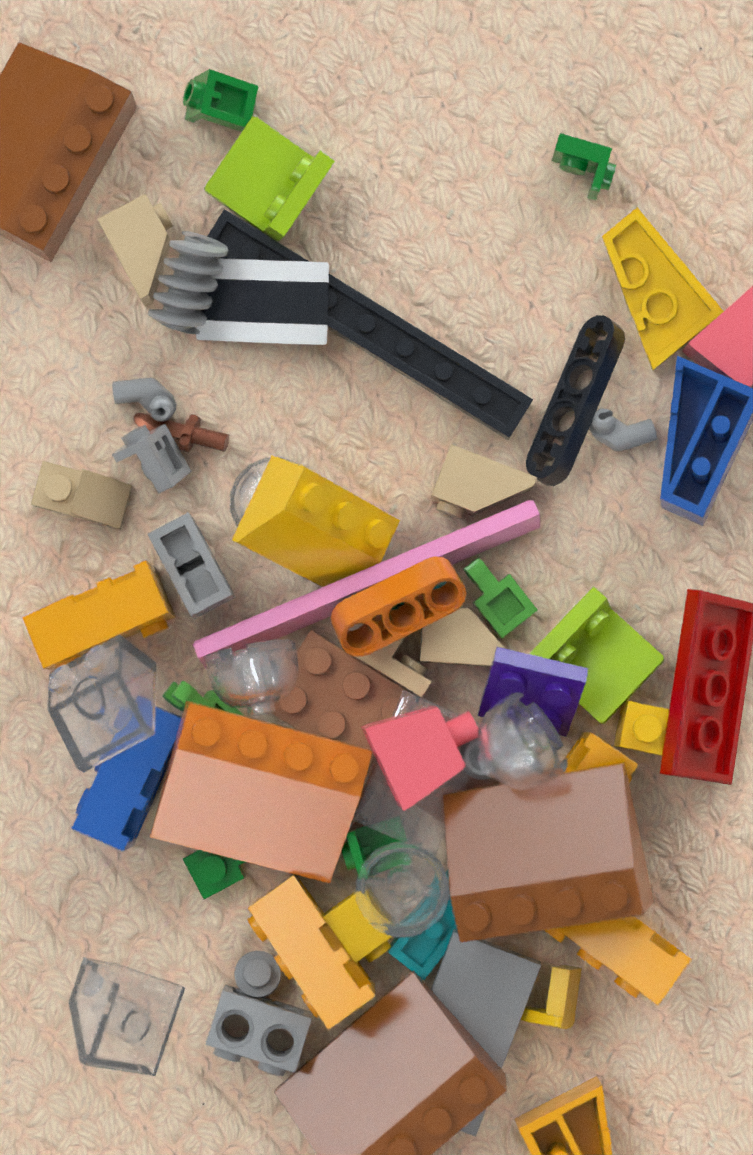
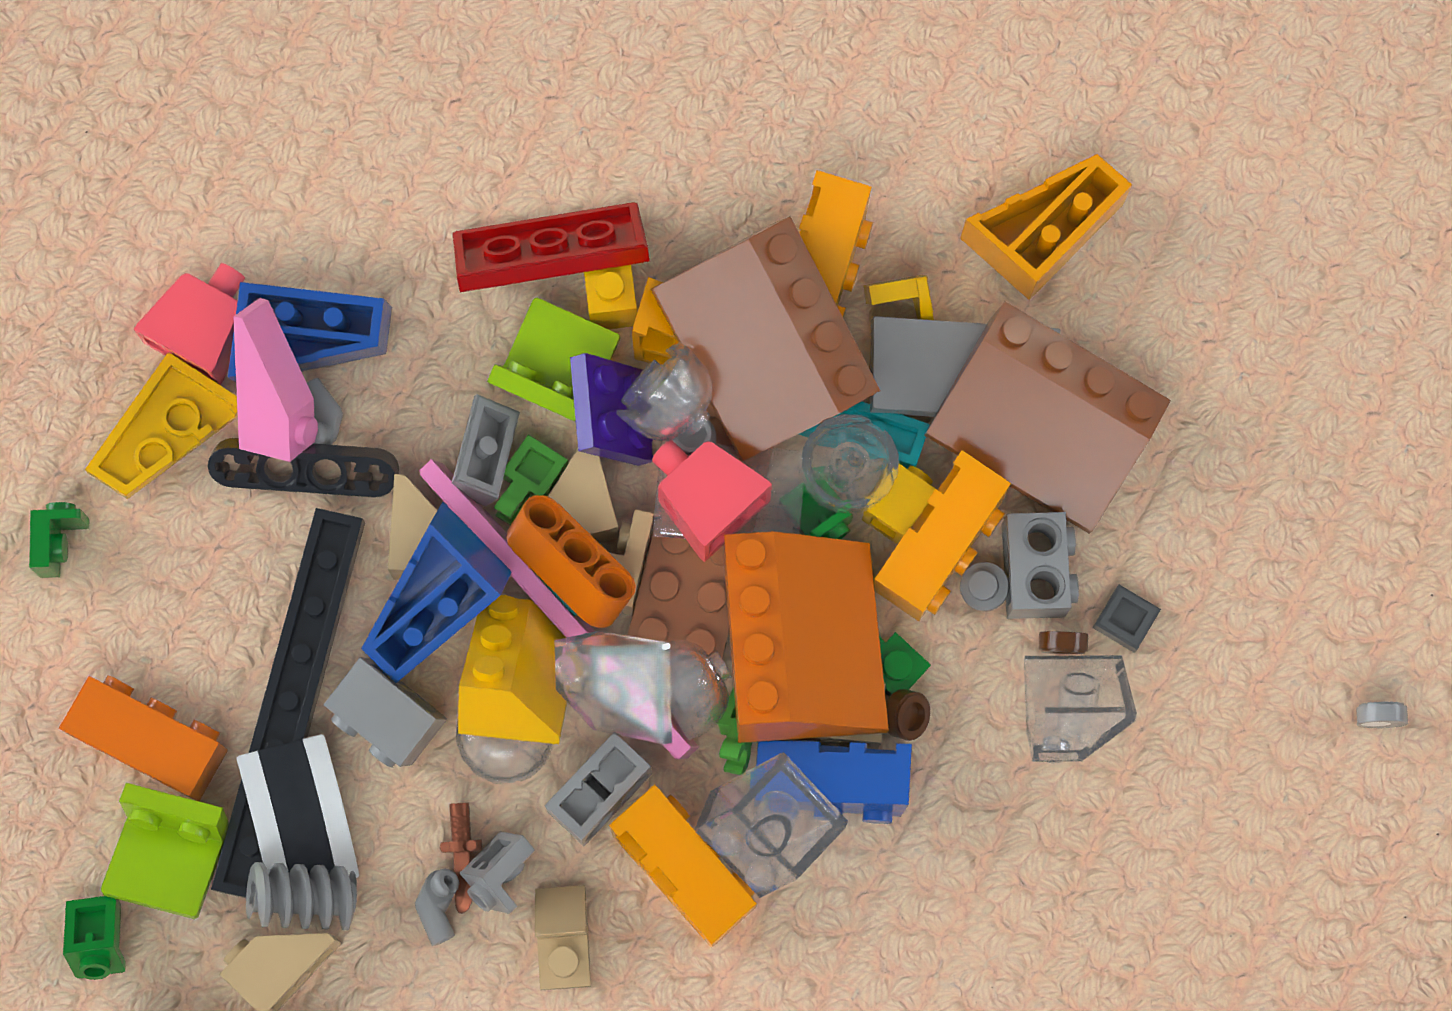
camera: 110 degrees left, 10 degrees down
(166, 862) = (907, 714): none -> reddish brown tile
(181, 1026) = (1063, 642): none -> reddish brown tile
(186, 1093) = (1126, 618): none -> dark grey tile
(272, 611) = (617, 683): none -> clear slope
(326, 402) = (384, 714): none -> light grey brick
(377, 191) = (145, 736): none -> orange brick
(407, 478) = (437, 595): none -> blue wedge
(534, 566) = (485, 450): none -> light grey slope
(649, 389) = (271, 390): none -> bright pink slope

